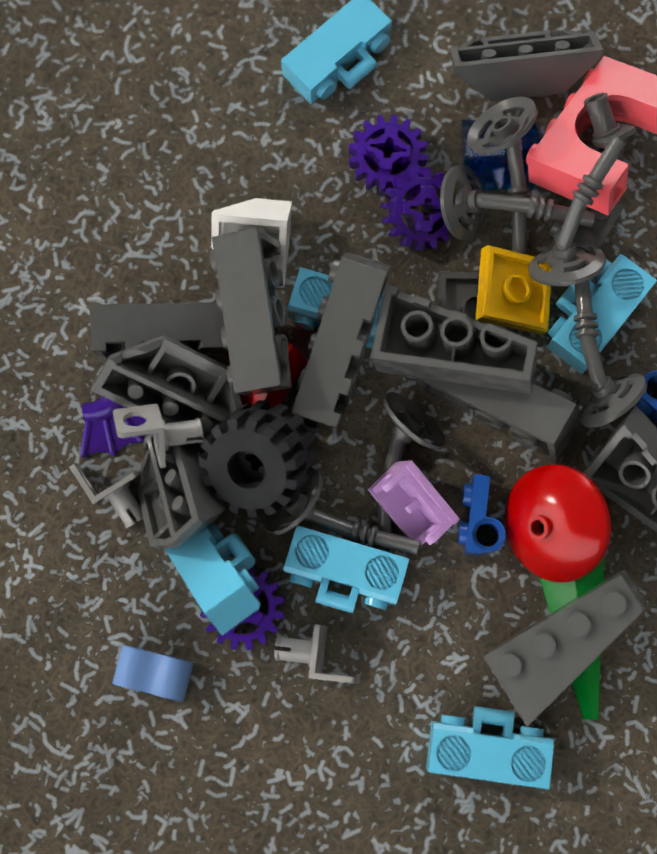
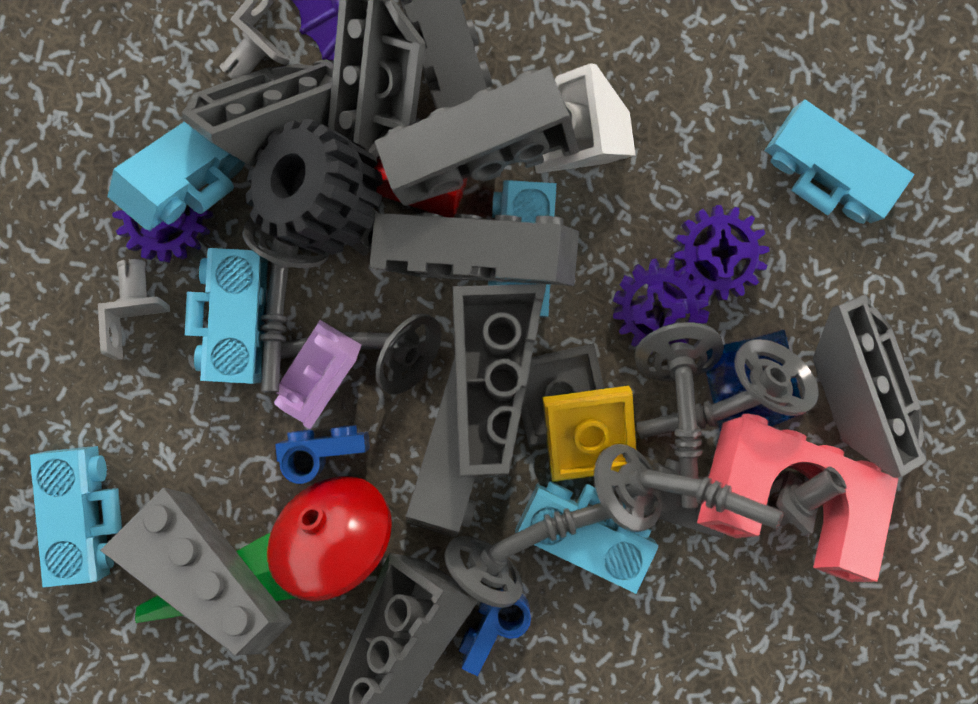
camera: 70 degrees right, 10 degrees up
(153, 673) = (70, 135): medium blue axle -> none
(164, 433) = (320, 63): light grey bracket -> none

